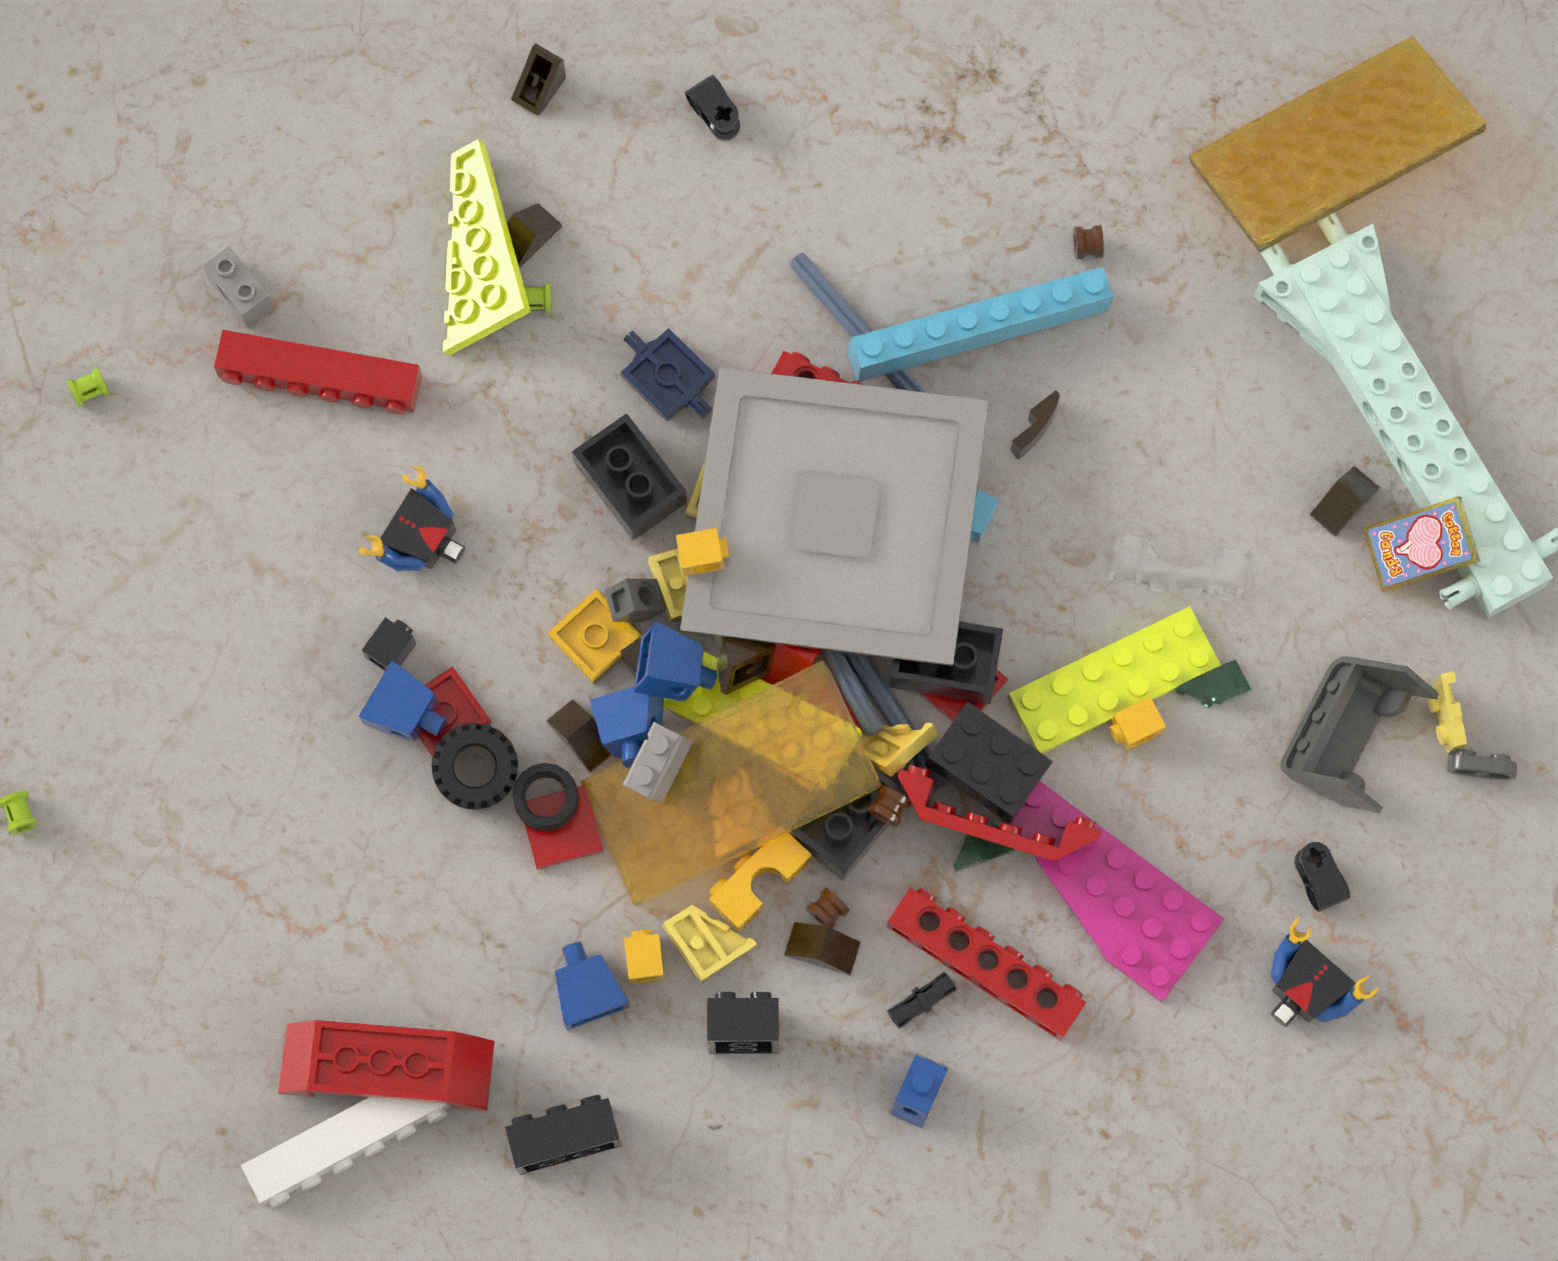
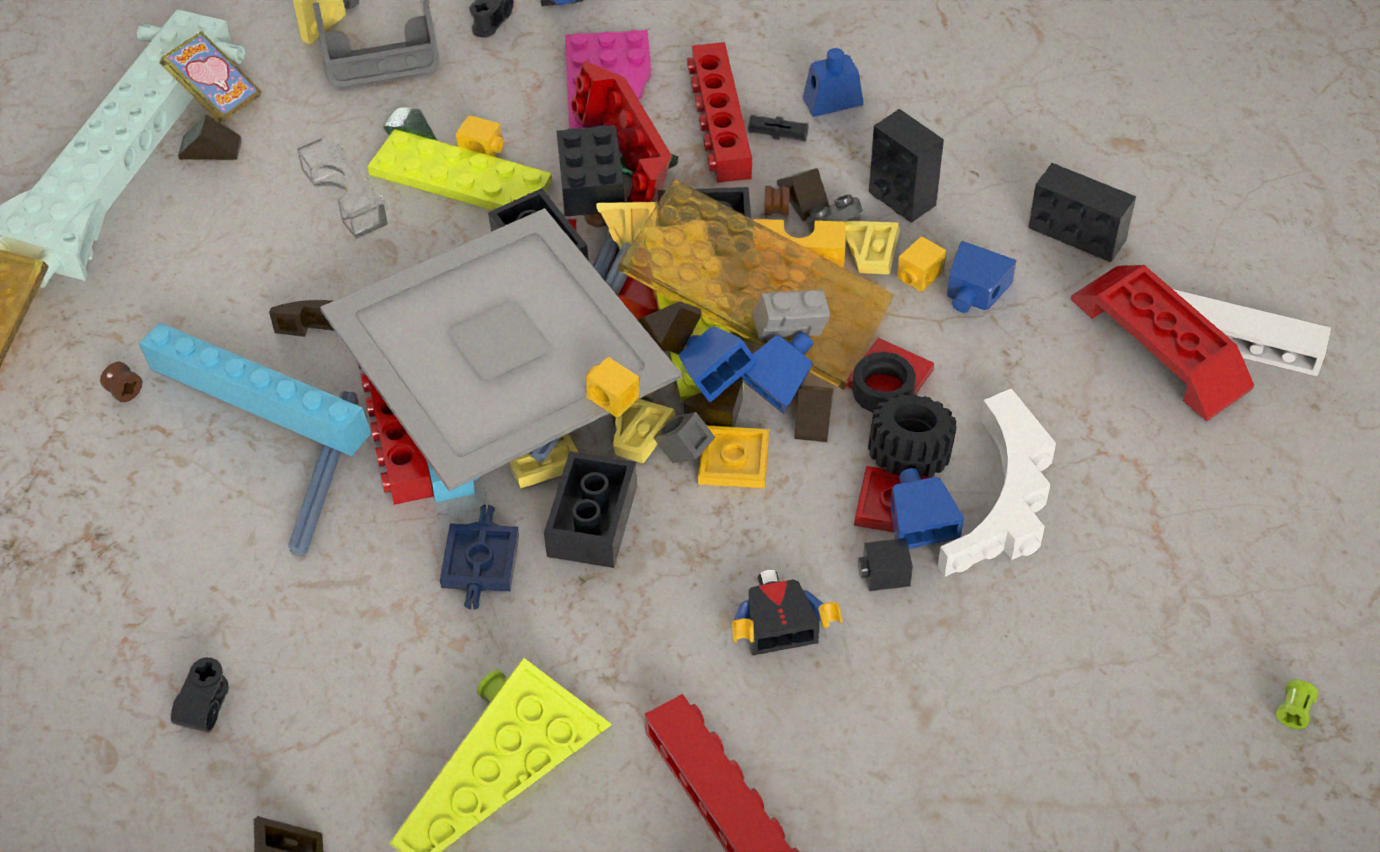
camera: 130 degrees left, 25 degrees down
(391, 848) = (1011, 524): none -> white arch
(530, 231) = (436, 743): dark brown slope -> none
(767, 941) = (843, 209): none -> dark grey plate
(889, 806) = (684, 175): reddish brown wheel -> none

